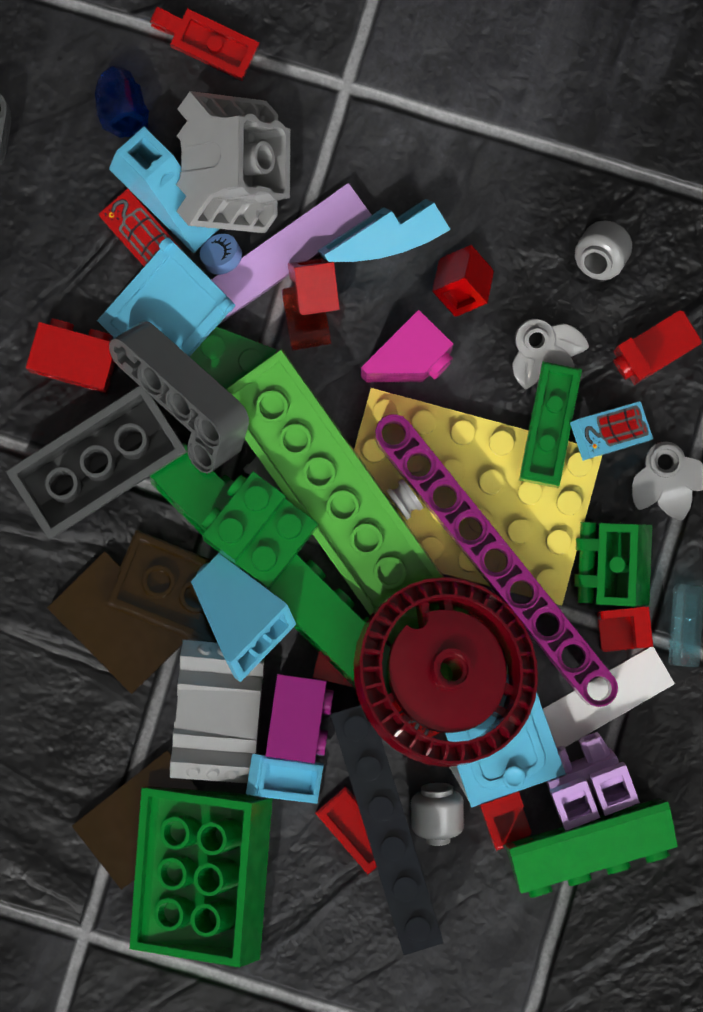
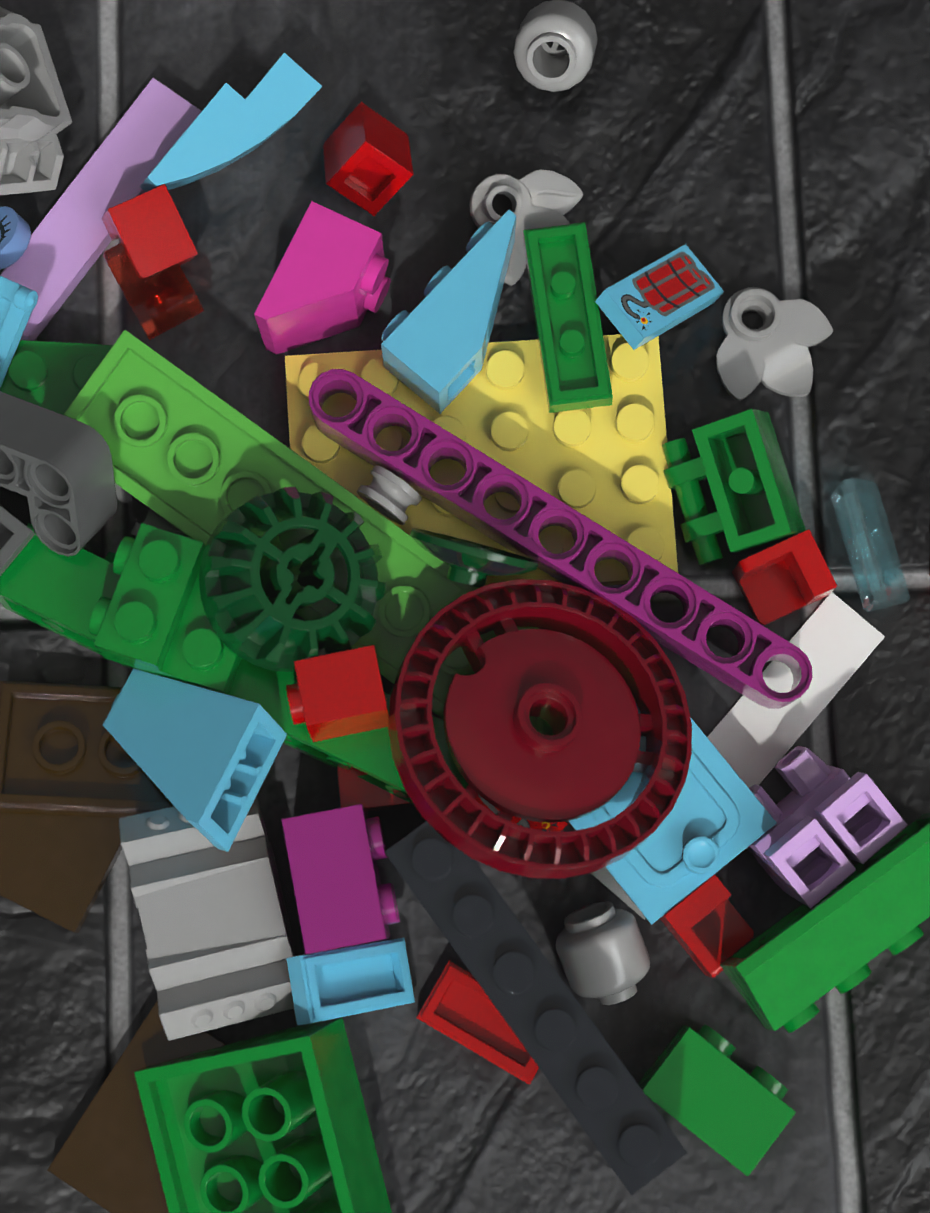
camera: 20 degrees left, 5 degrees down
(304, 535) = (254, 606): none -> dark green gear
(335, 613) = (339, 694): none -> red brick
(441, 556) = (471, 561): none -> dark green dish
(473, 414) = (448, 333): none -> medium azure slope
(473, 919) = (717, 1098): none -> green brick
(656, 347) = (680, 162): red bracket -> none

